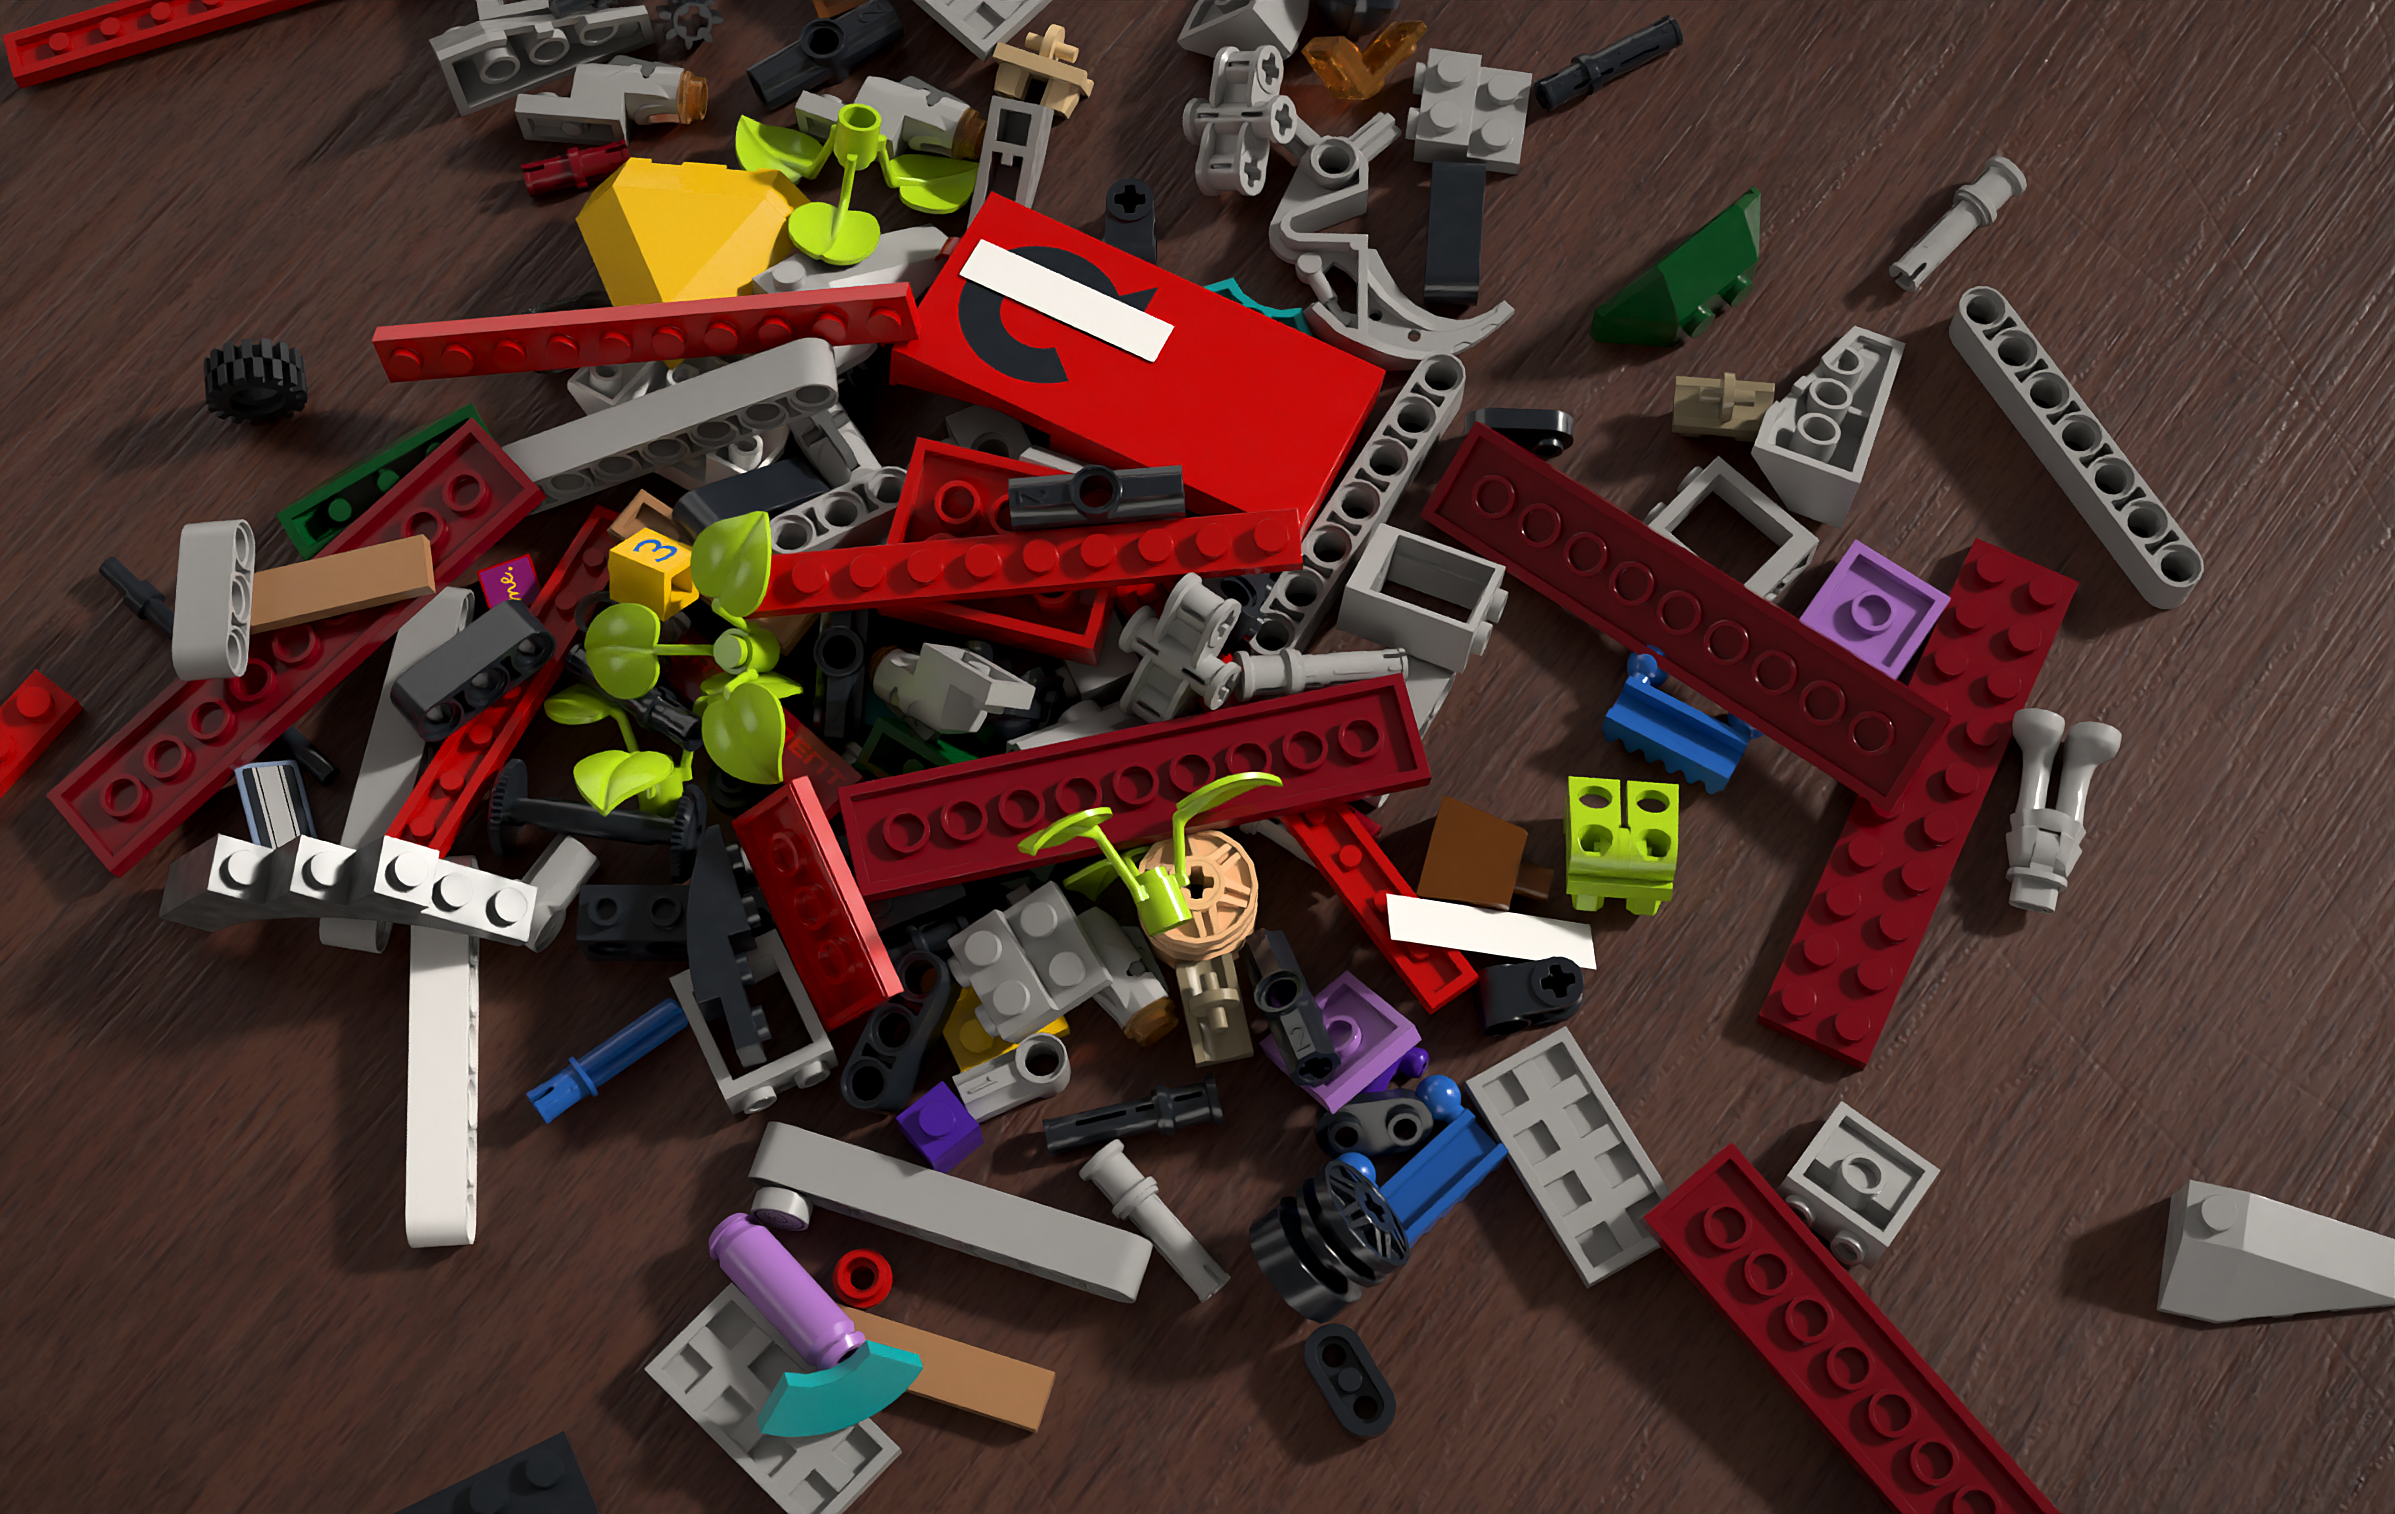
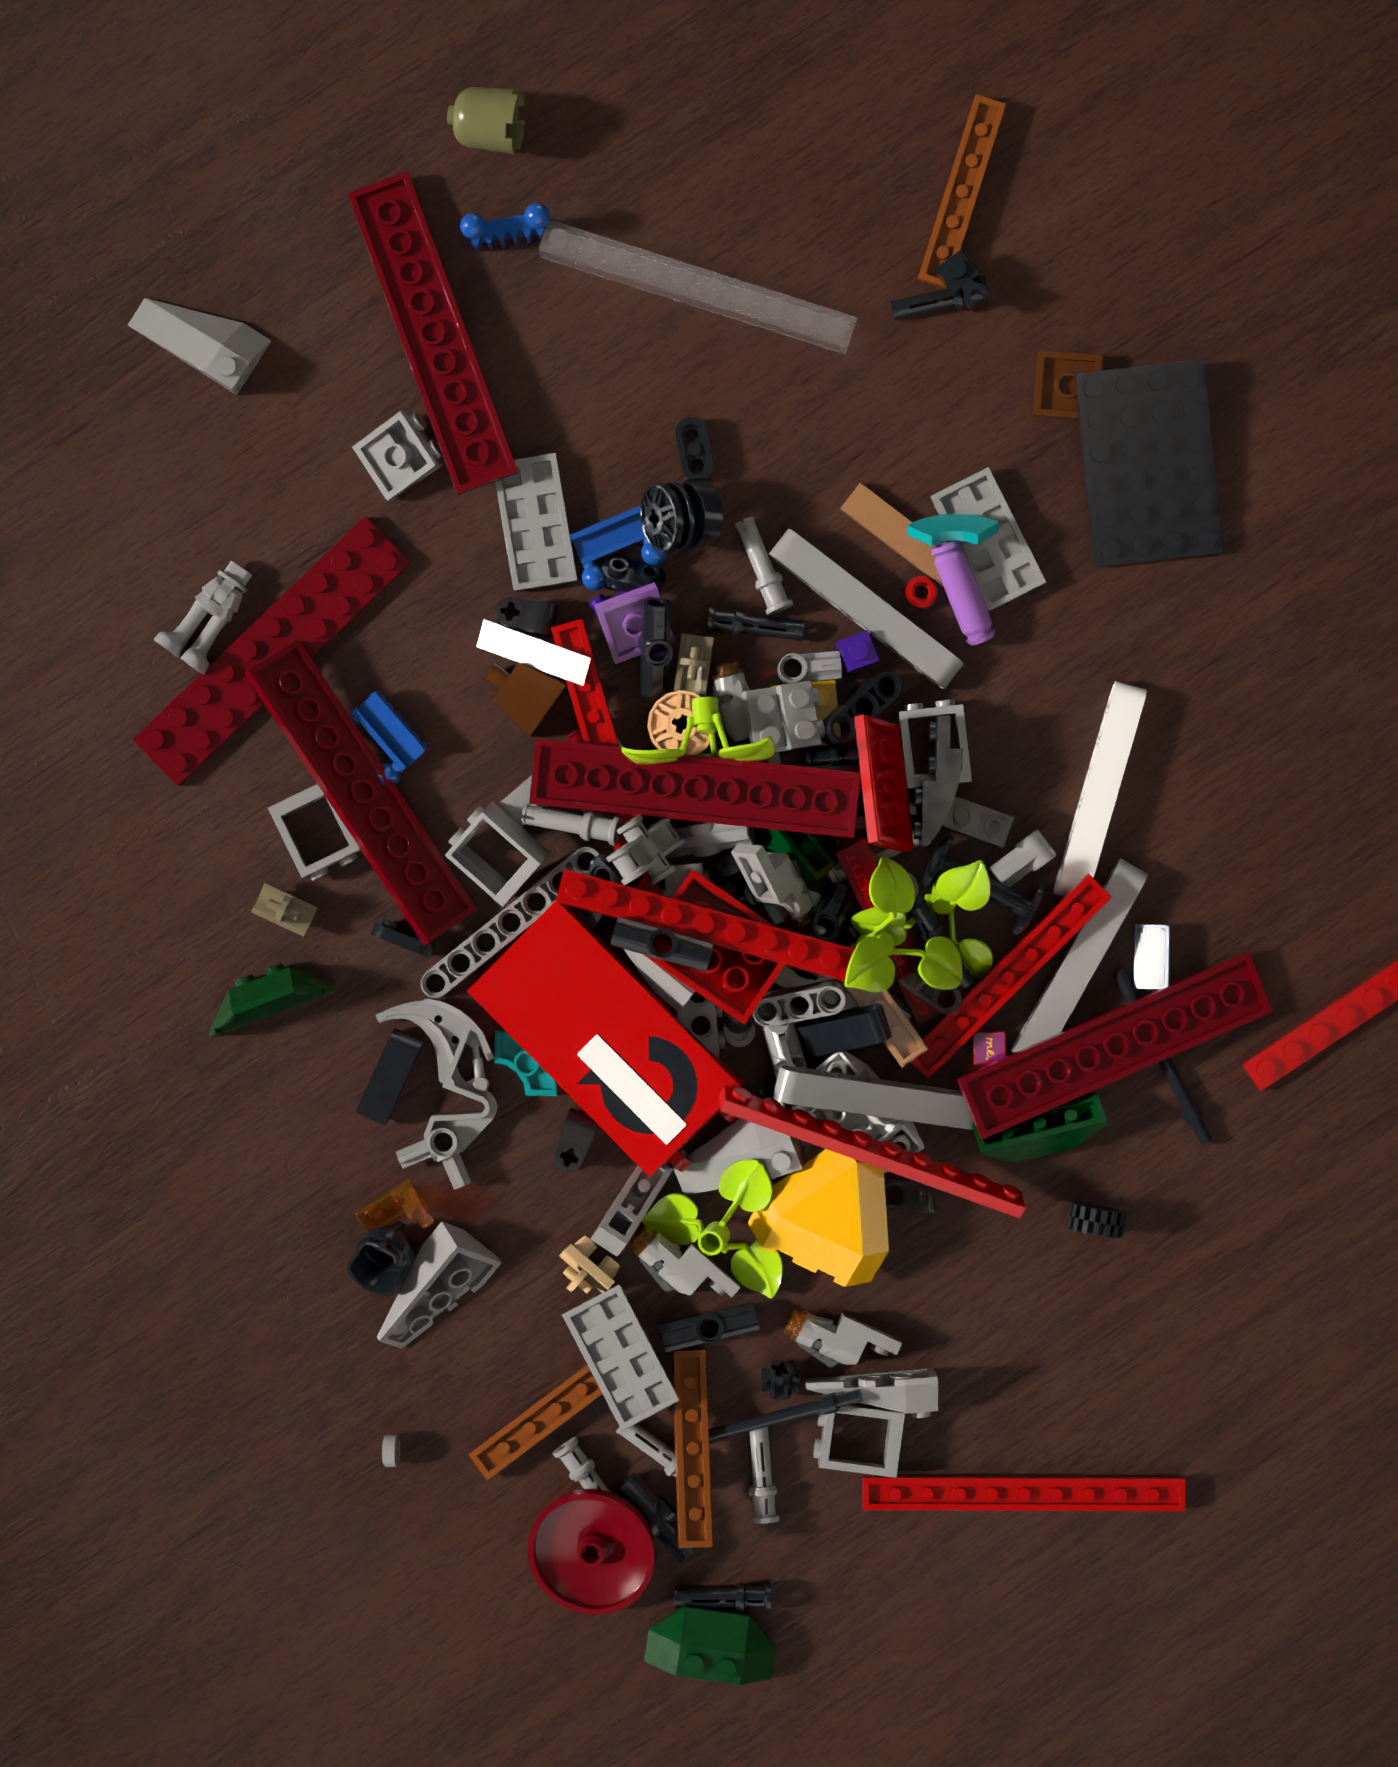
camera: 165 degrees left, 20 degrees up
(213, 600) = (1153, 1075): light grey beam -> none
(307, 877) = (1129, 884): dark grey arch -> none
(341, 583) = (1093, 1066): medium nougat tile -> none
(472, 670) = (1025, 989): black beam -> none
(574, 168) = (875, 1303): dark red pin -> none
(607, 1060) = (1016, 755): blue axle -> none
(652, 573) = (911, 1006): yellow brick -> none
(782, 1208) = (951, 641): light grey tile -> none
(1239, 120) = (487, 1188): light grey axle -> none
(1468, 112) = (349, 1153): light grey plate -> none
(1590, 72) = (257, 1156): black pin -> none
(1618, 854) = (446, 663): lime hips -> none
(1825, 428) = (233, 876): light grey wedge -> none
(1875, 609) = (253, 761): medium lavender plate -> none
(1972, 209) = (87, 985): light grey pin -> none
(2073, 470) = (91, 804): light grey beam -> none

